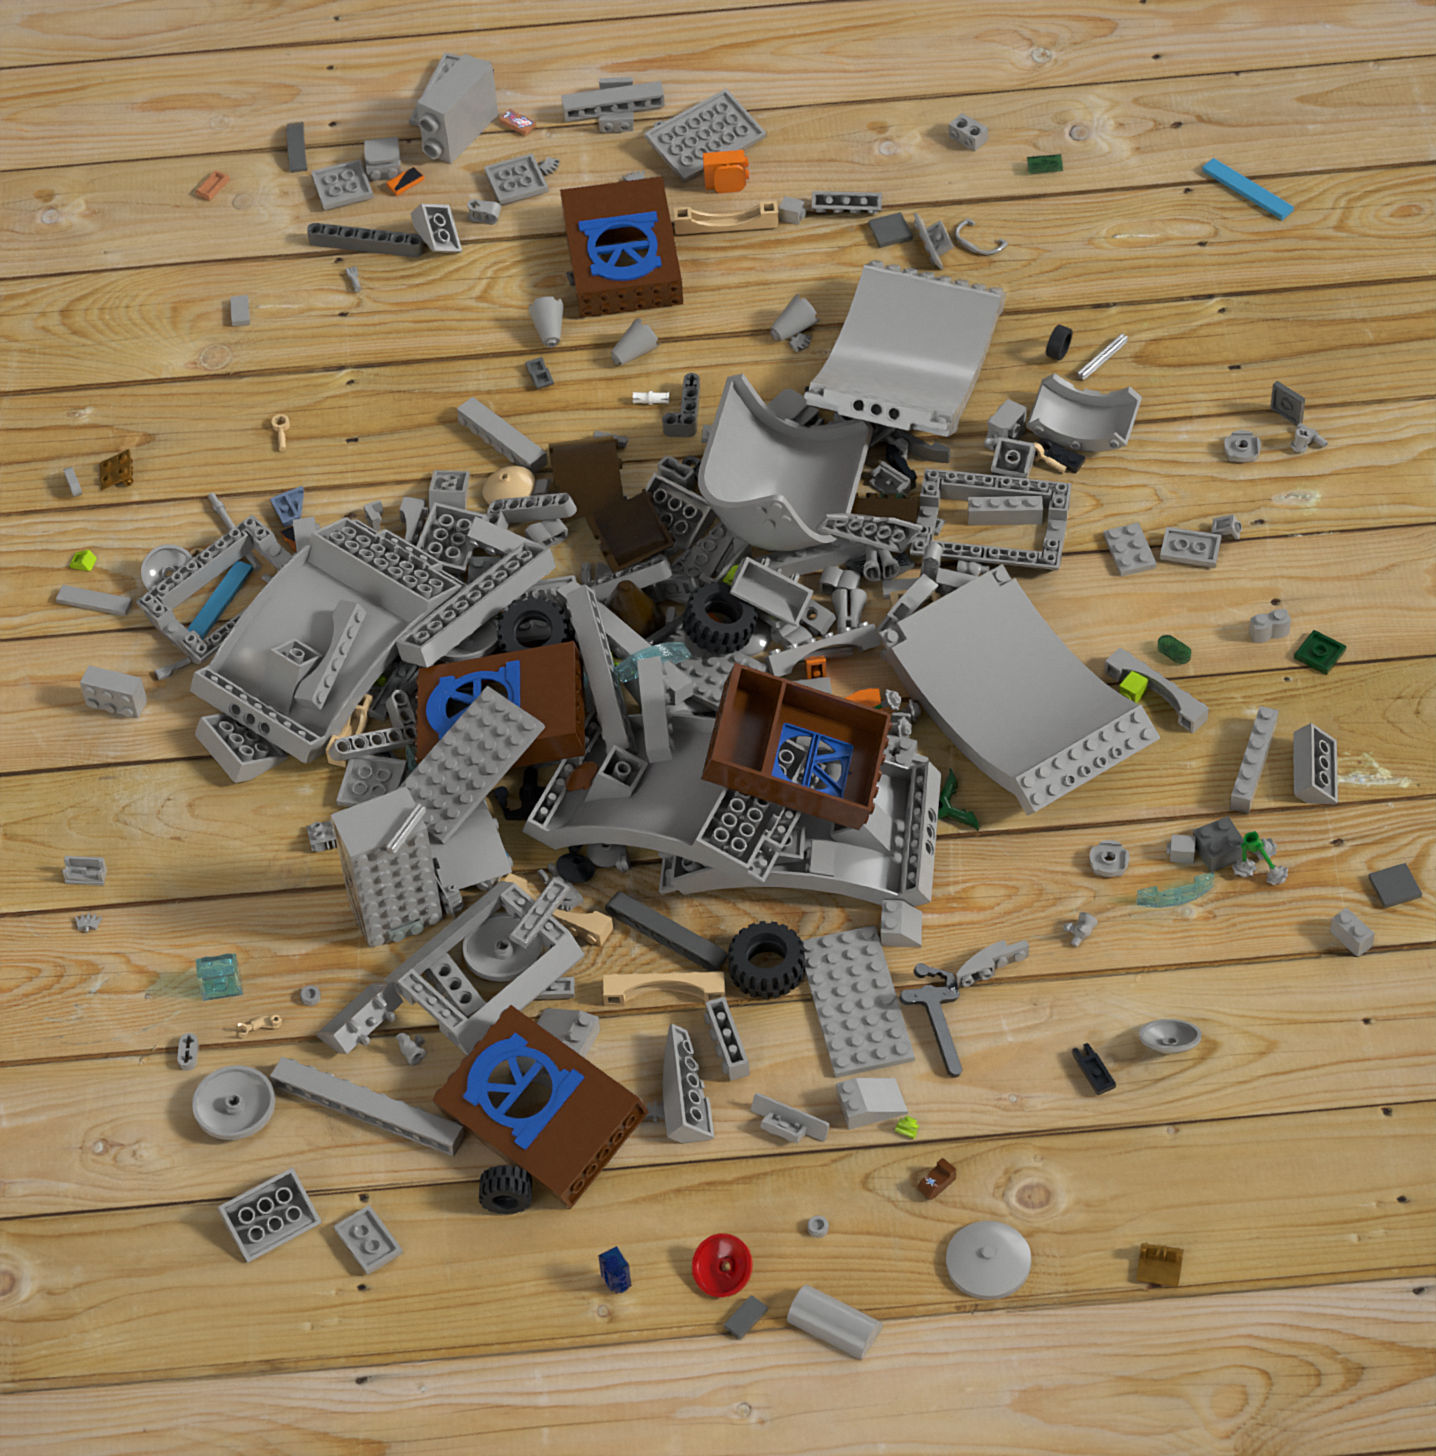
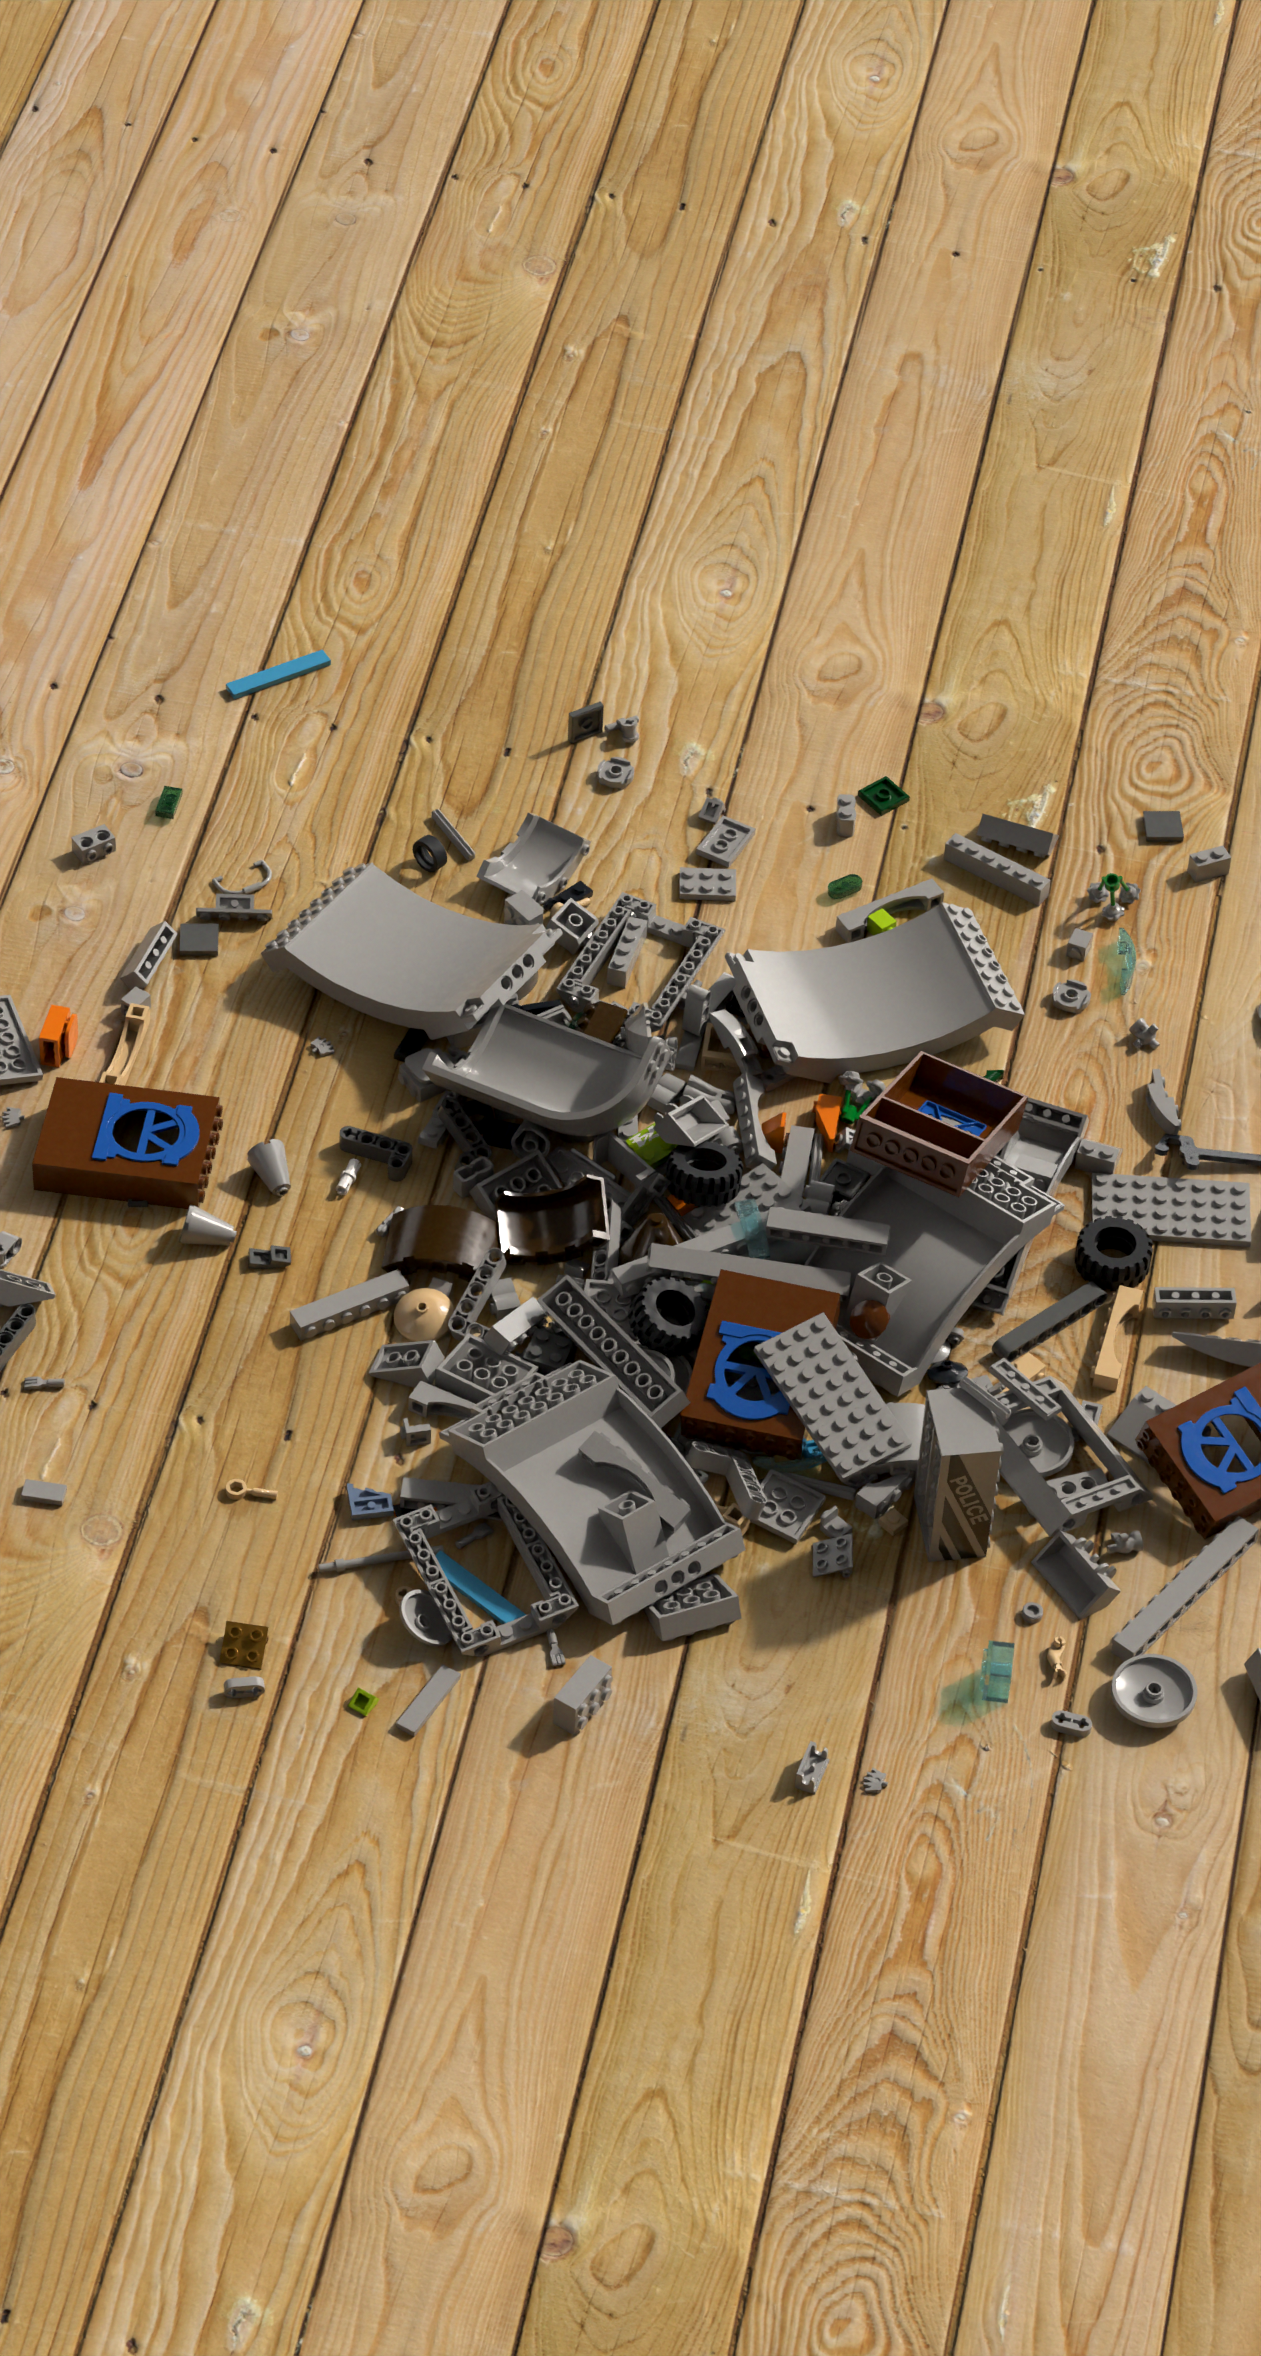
camera: 80 degrees left, 5 degrees down
(794, 319) = (298, 1035): light grey cone -> none
(1218, 844) = (1084, 914): dark grey brick -> none

